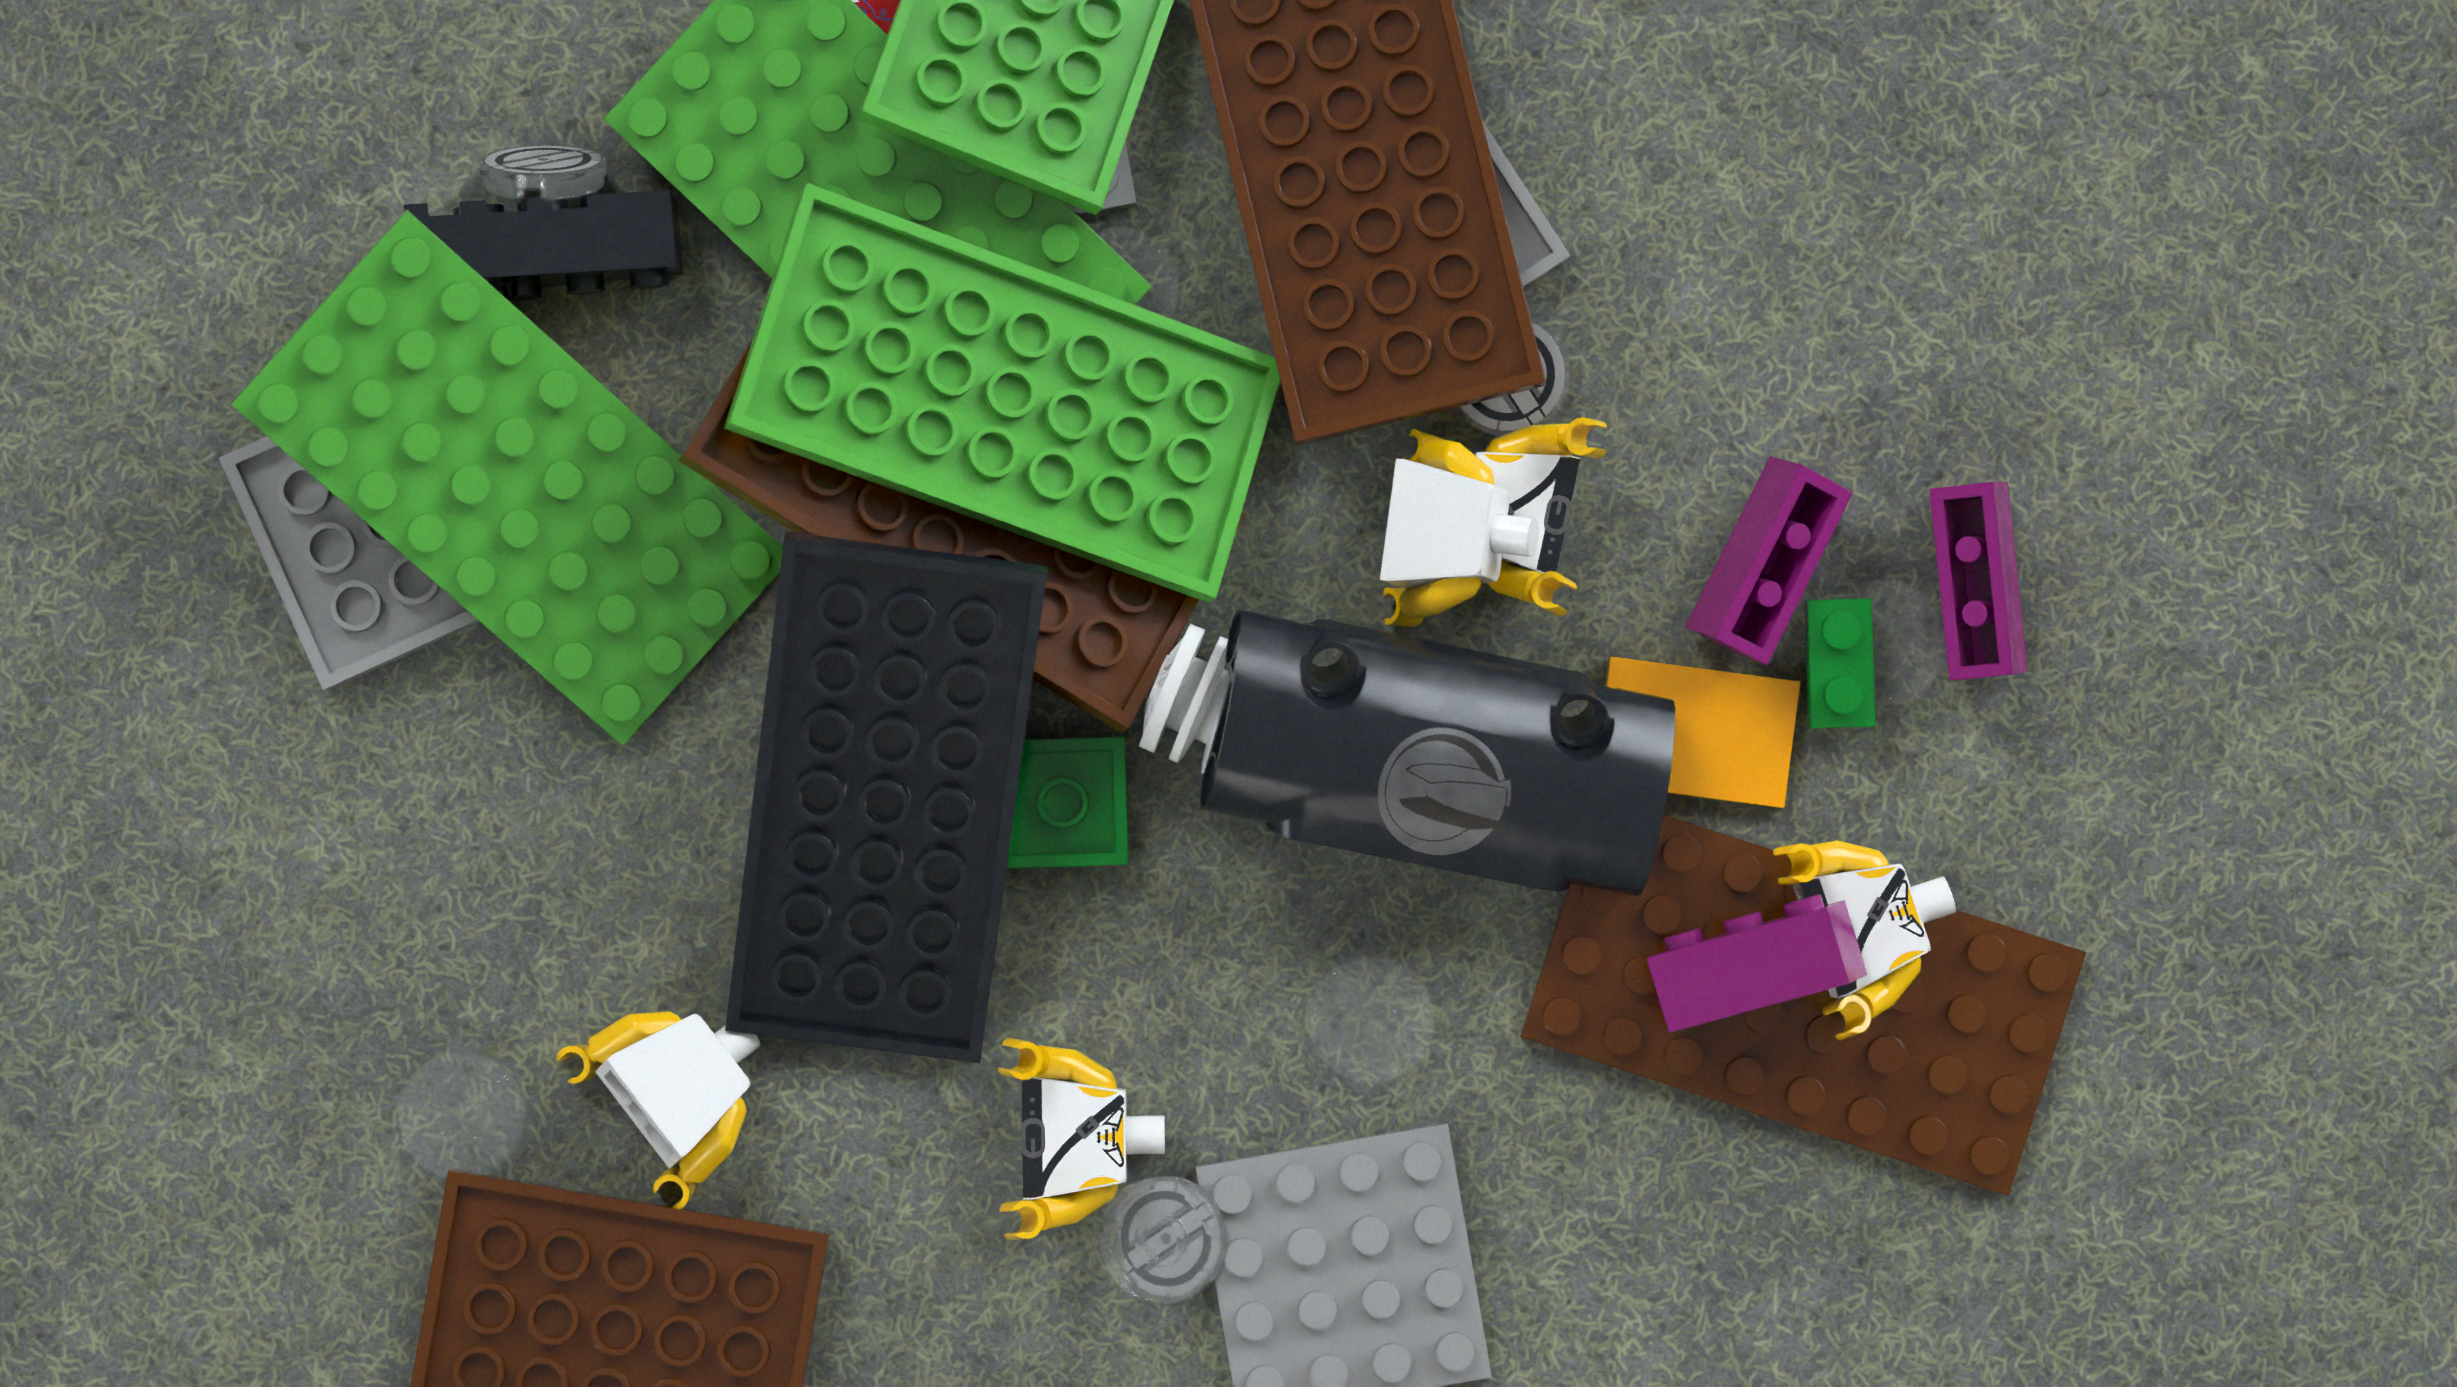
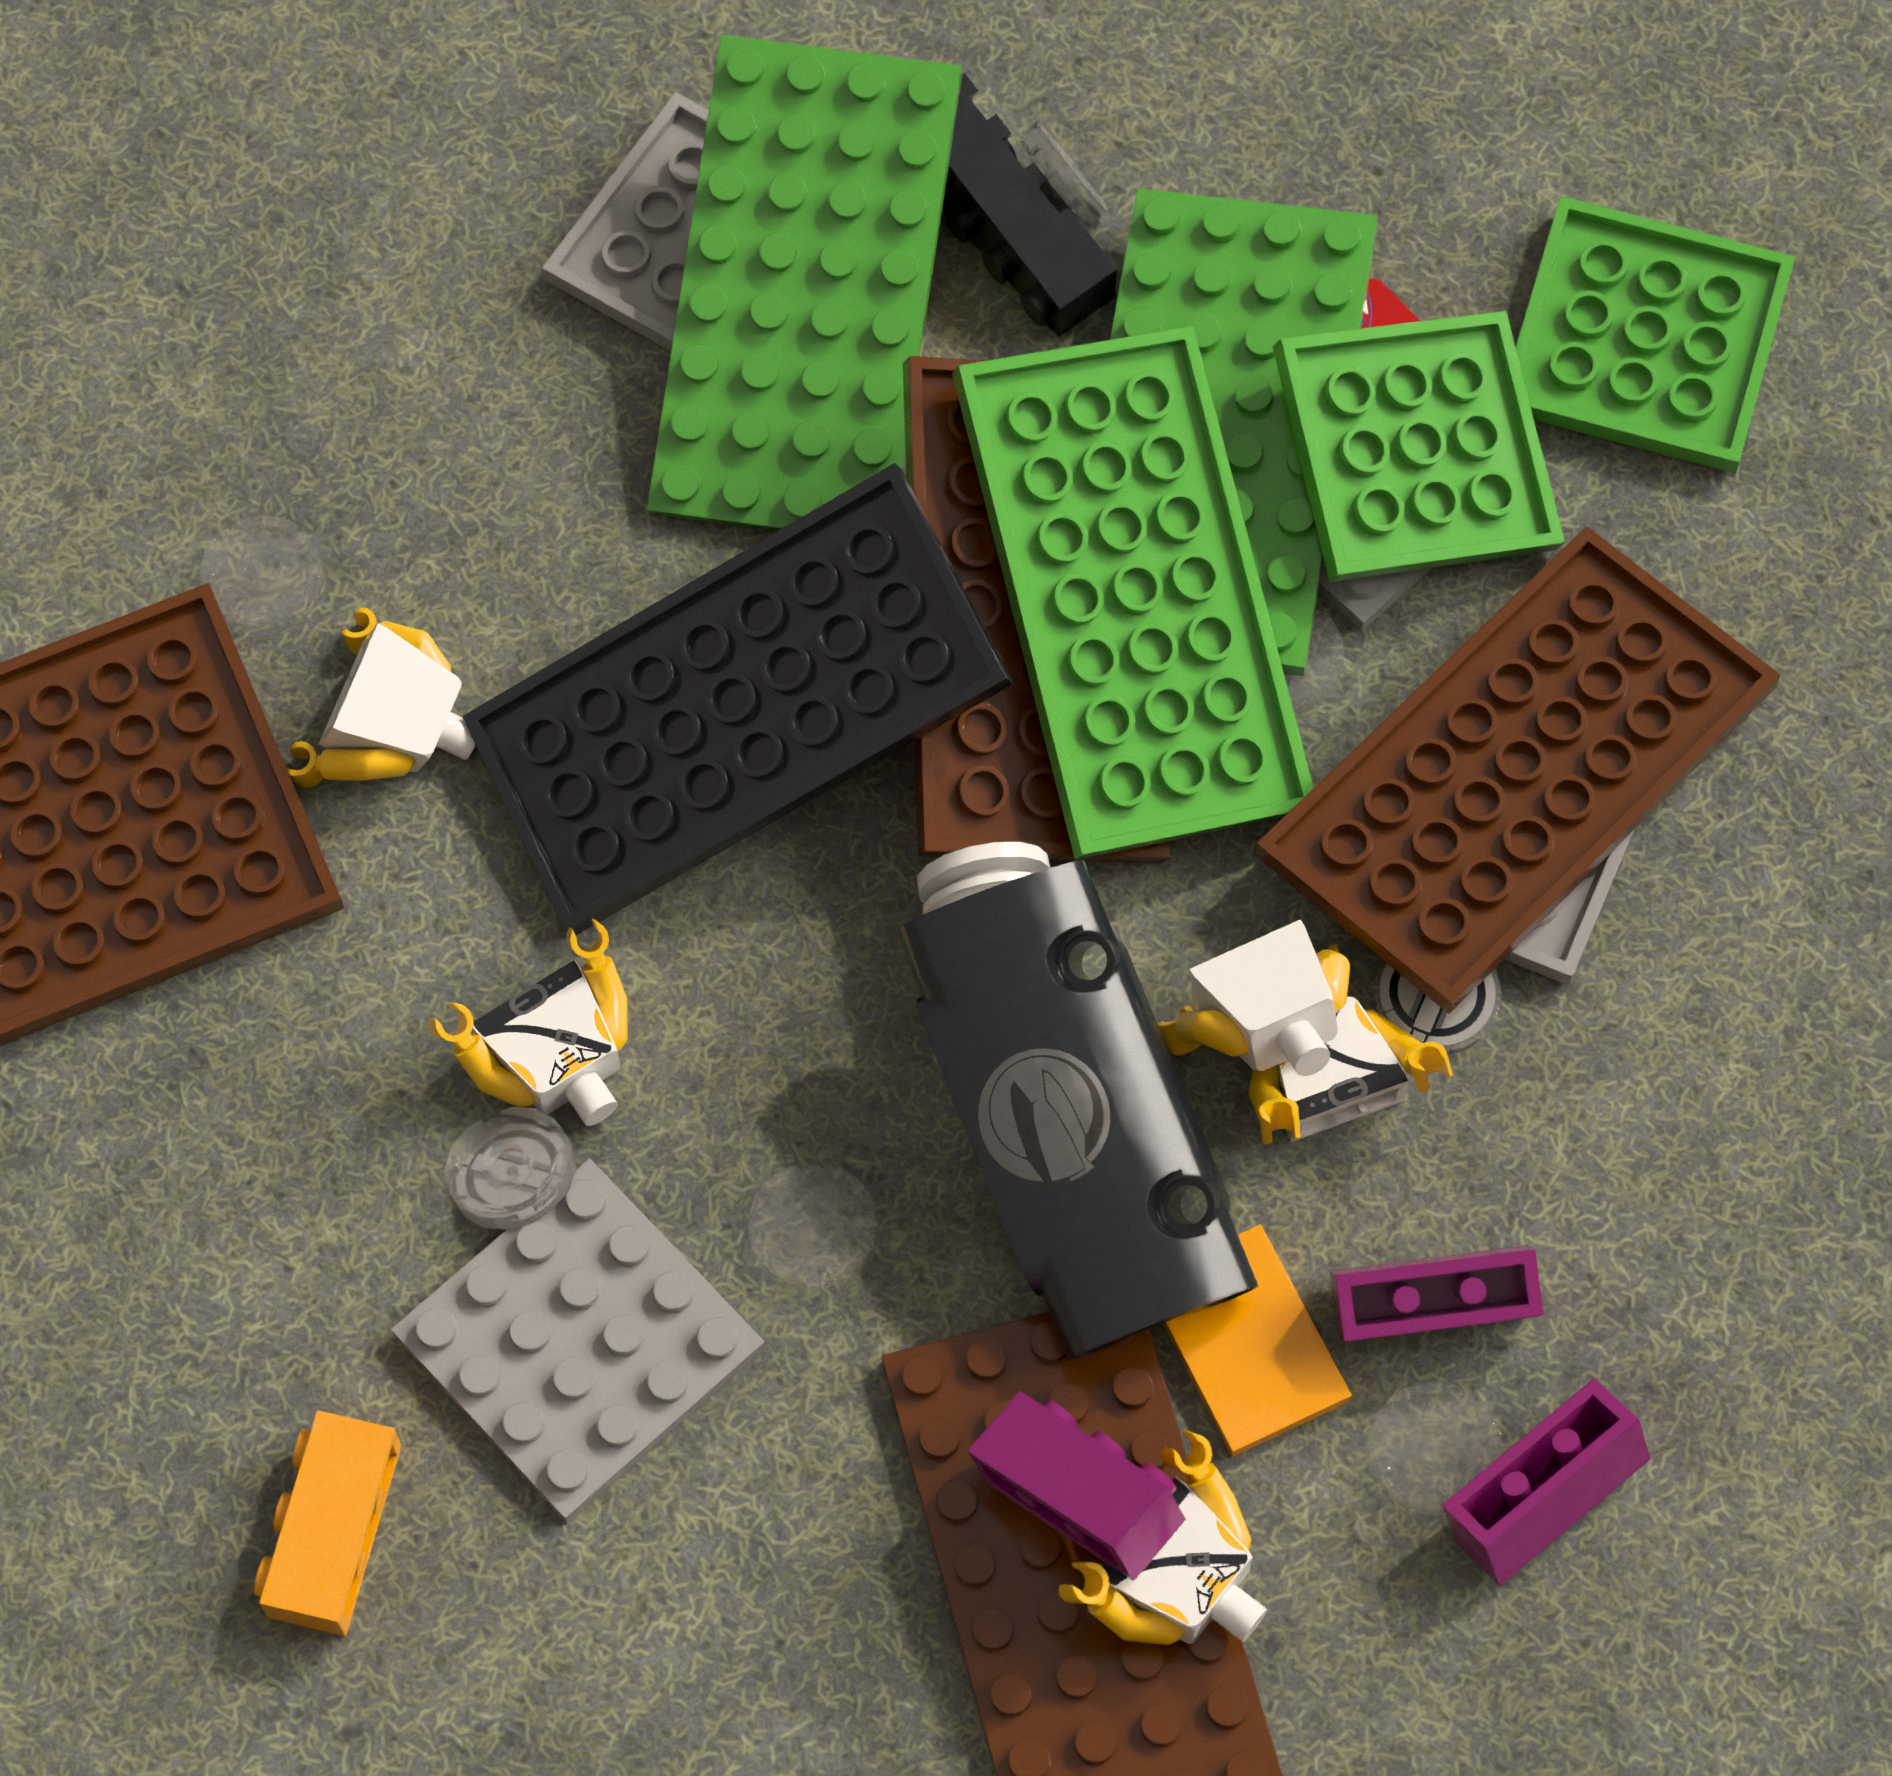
camera: 60 degrees right, 20 degrees down
(1071, 804) = (829, 865): green plate -> none
(1839, 663) = (1390, 1413): green plate -> none

